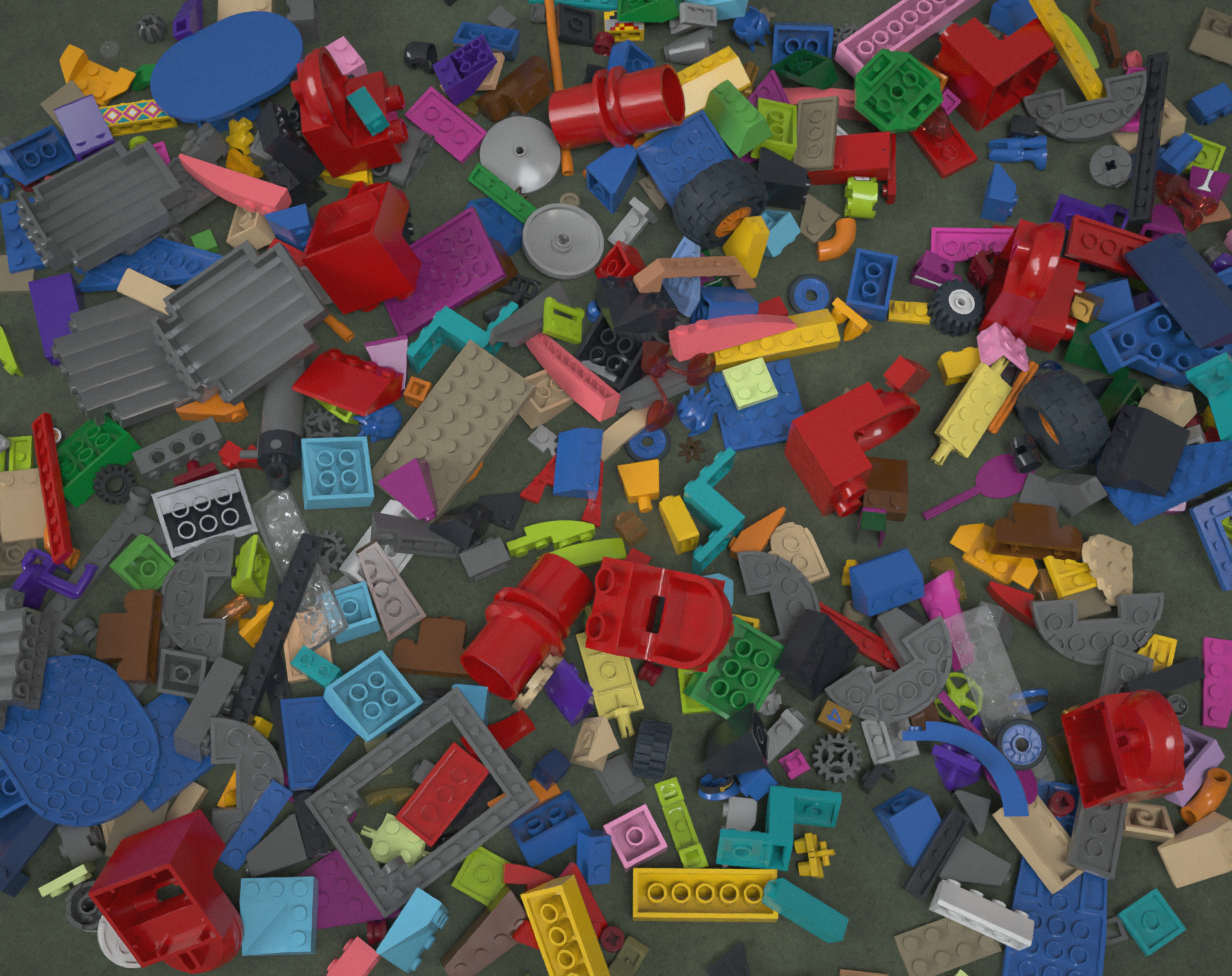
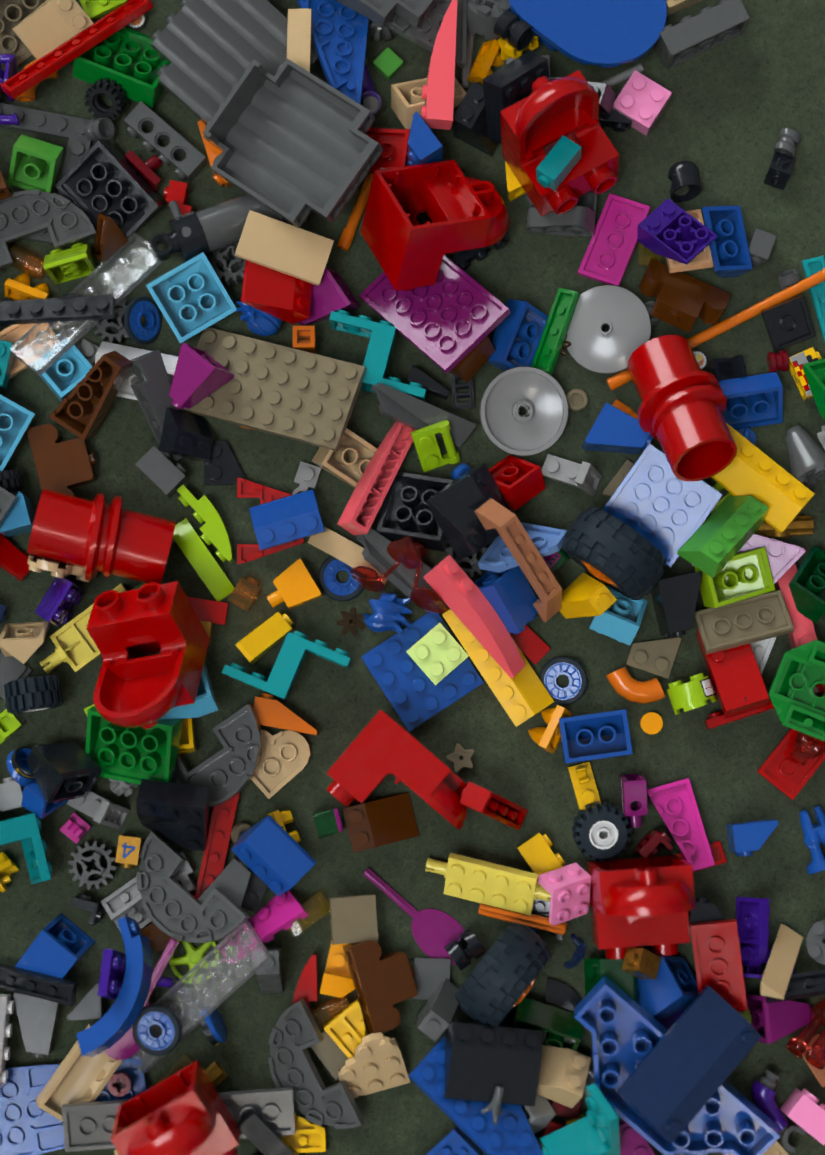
camera: 70 degrees right, 15 degrees up
(230, 125) = (514, 30): none -> black wheel
(242, 526) = (108, 238): none -> reddish brown slope
(330, 367) = (284, 248): none -> tan slope
(336, 525) = (136, 308): none -> blue wheel
(873, 241) = (651, 723): none -> light orange tile
(969, 533) = (353, 919): none -> dark tan tile
(1121, 204) = (781, 963): none -> tan slope
(1182, 457) = (495, 1105): none -> dark grey bar

